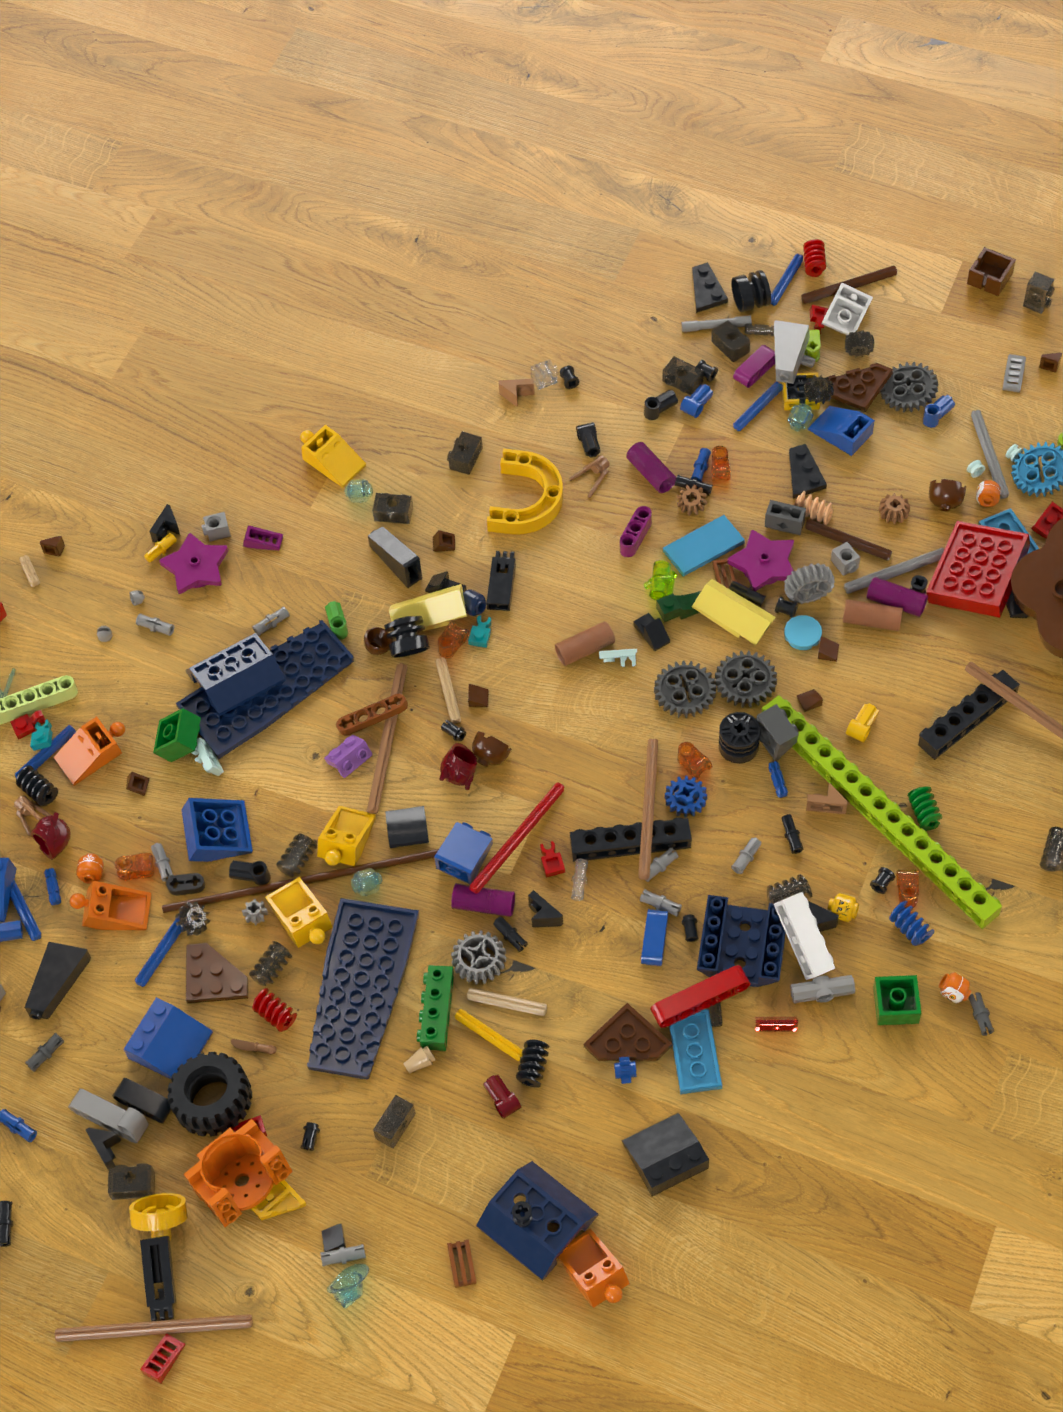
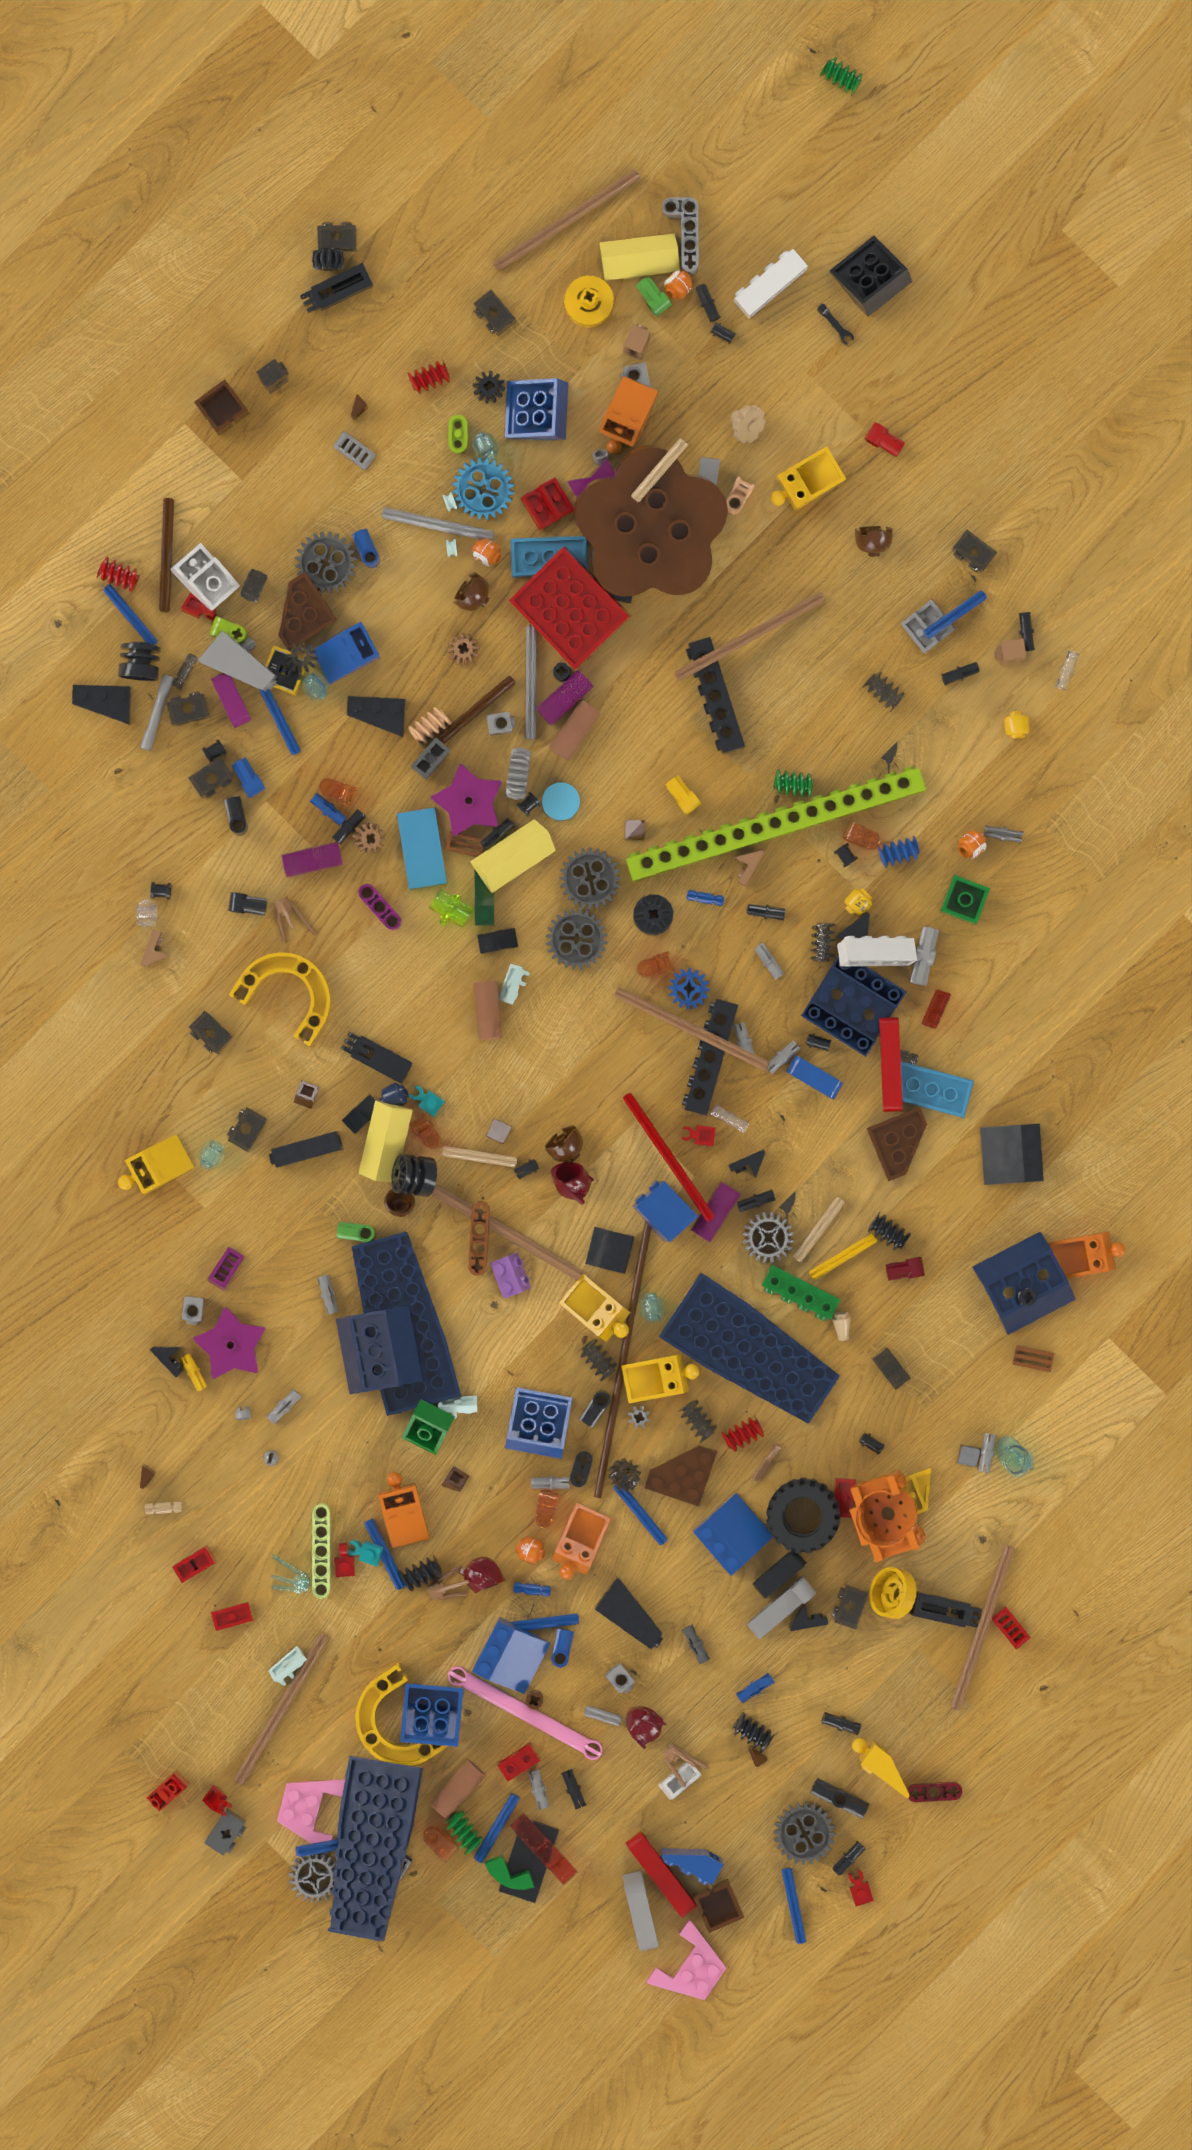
camera: 75 degrees left, 30 degrees up
(625, 1070) = (927, 1156): blue gear -> none
(776, 731) = (665, 880): dark grey slope -> none
(828, 650) = (590, 787): reddish brown slope -> none

